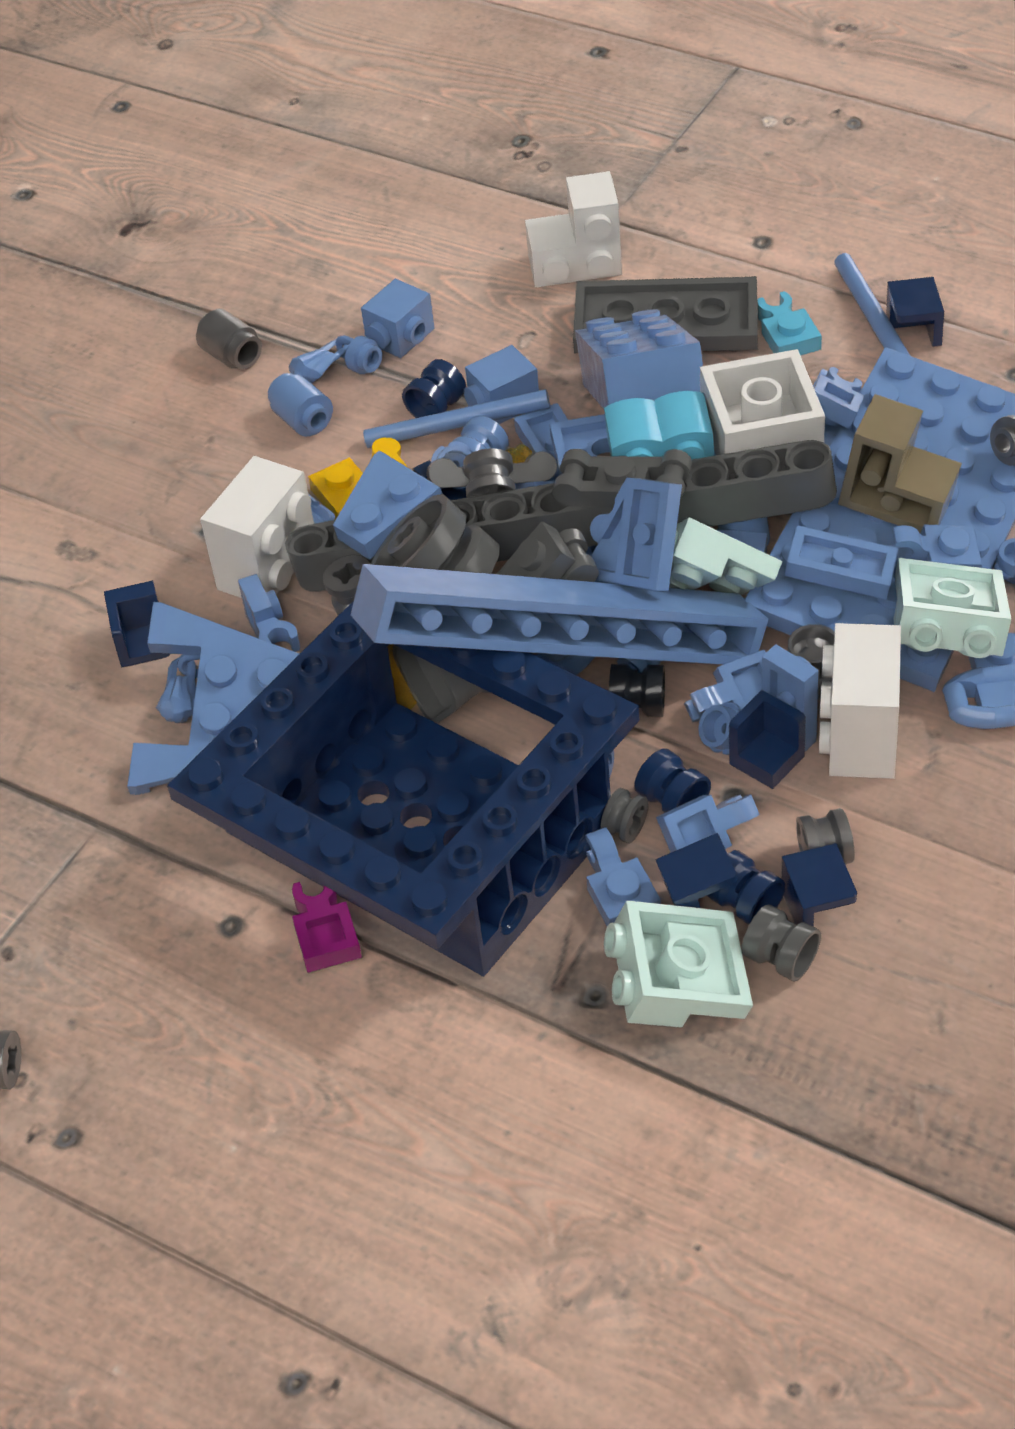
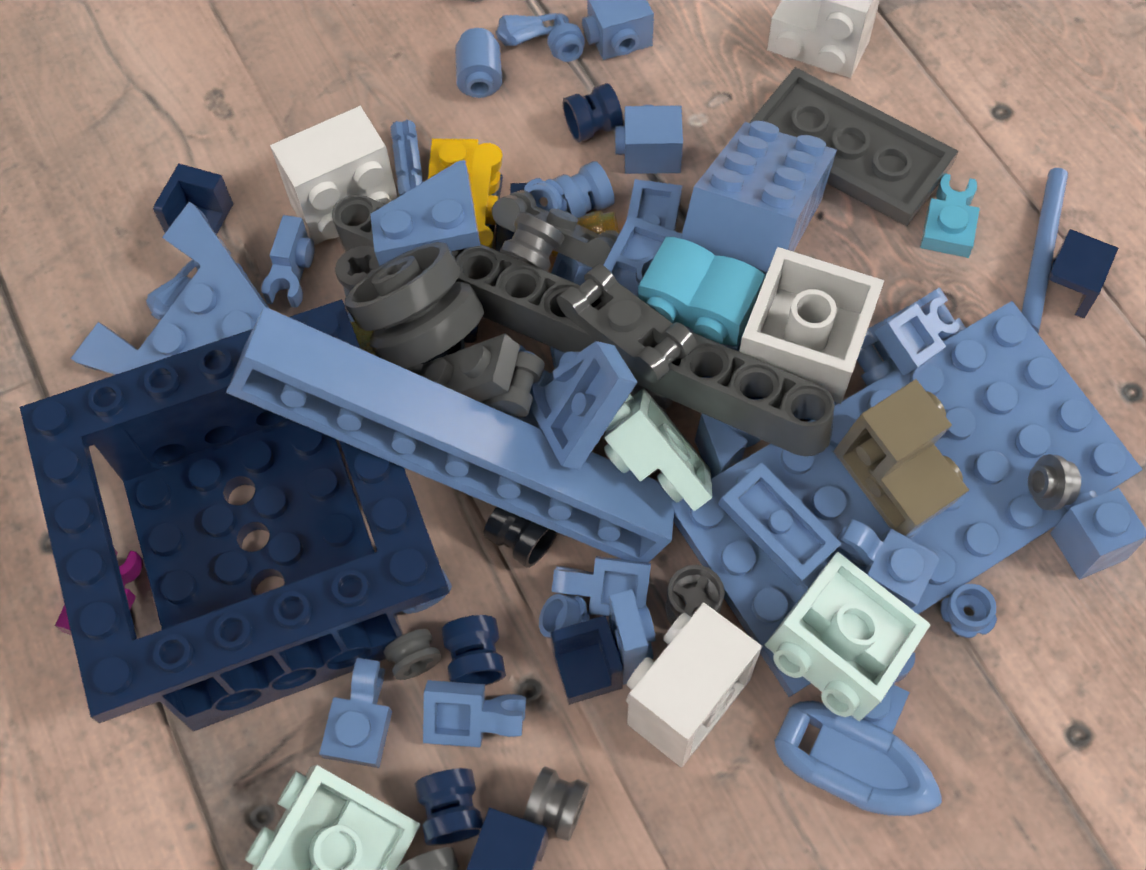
camera: 30 degrees right, 15 degrees up
(459, 417) = (591, 152): medium blue bar -> none
(696, 871) = (408, 771): dark blue panel -> none

